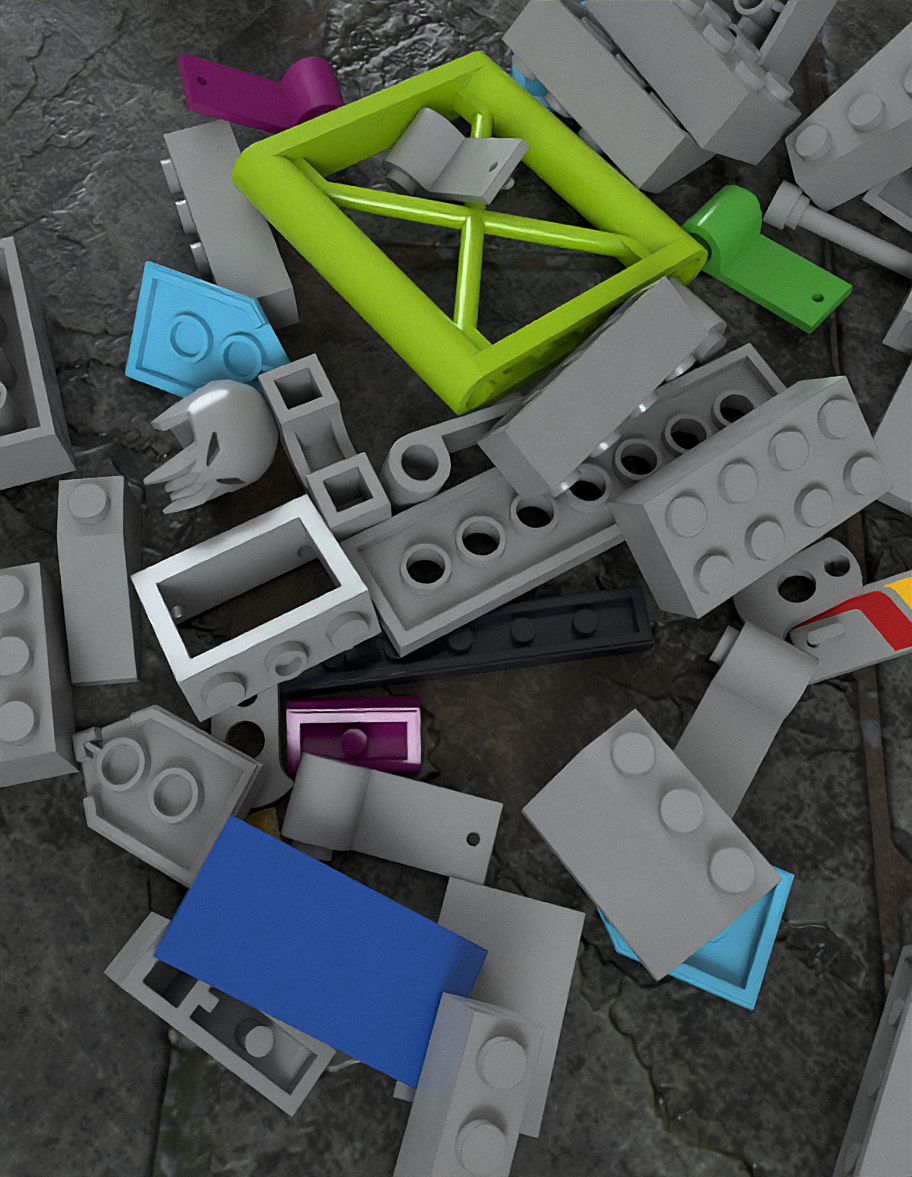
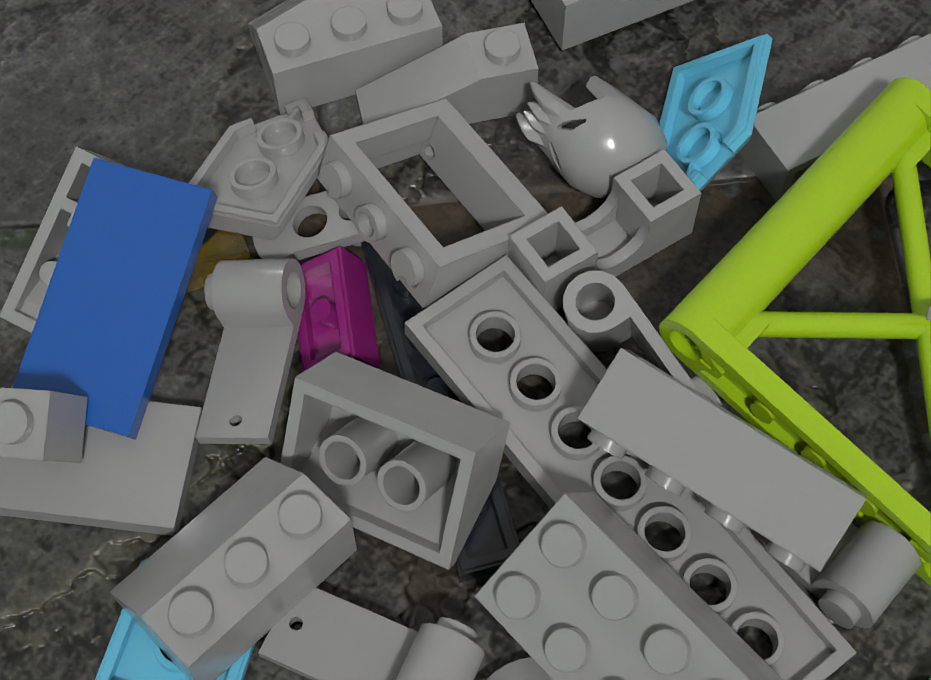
camera: 85 degrees right, 5 degrees down
(540, 678) = (394, 455): none -> light grey slope

